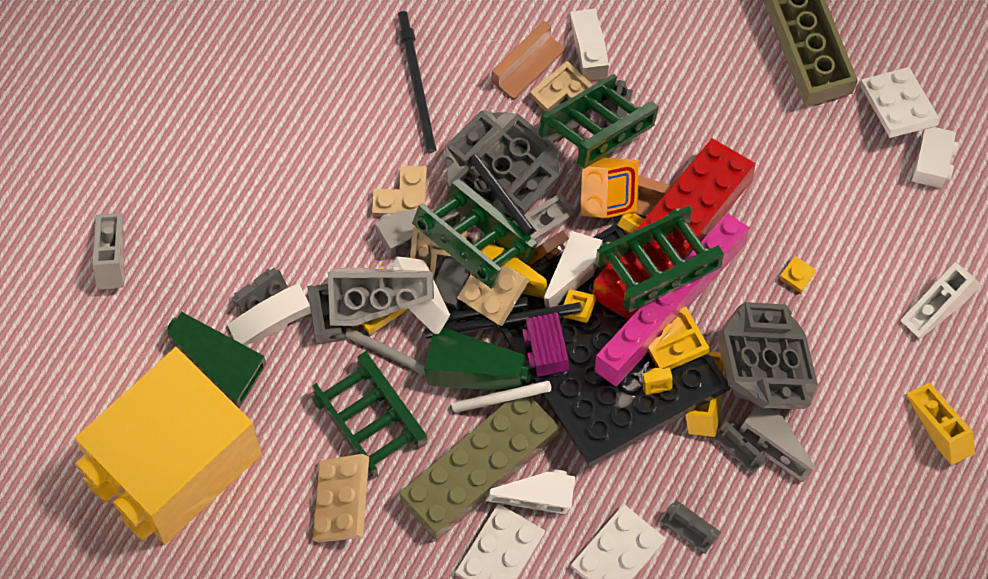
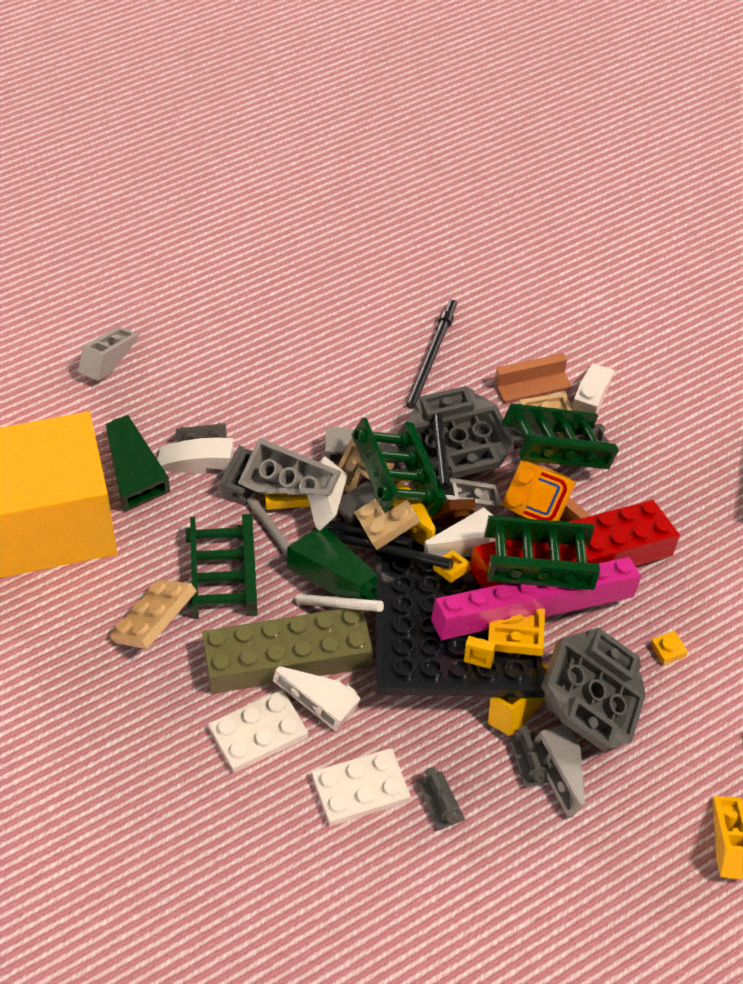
camera: 30 degrees right, 15 degrees down
(408, 197) = (379, 419): tan plate -> none
(547, 344) = (403, 580): magenta brick -> none

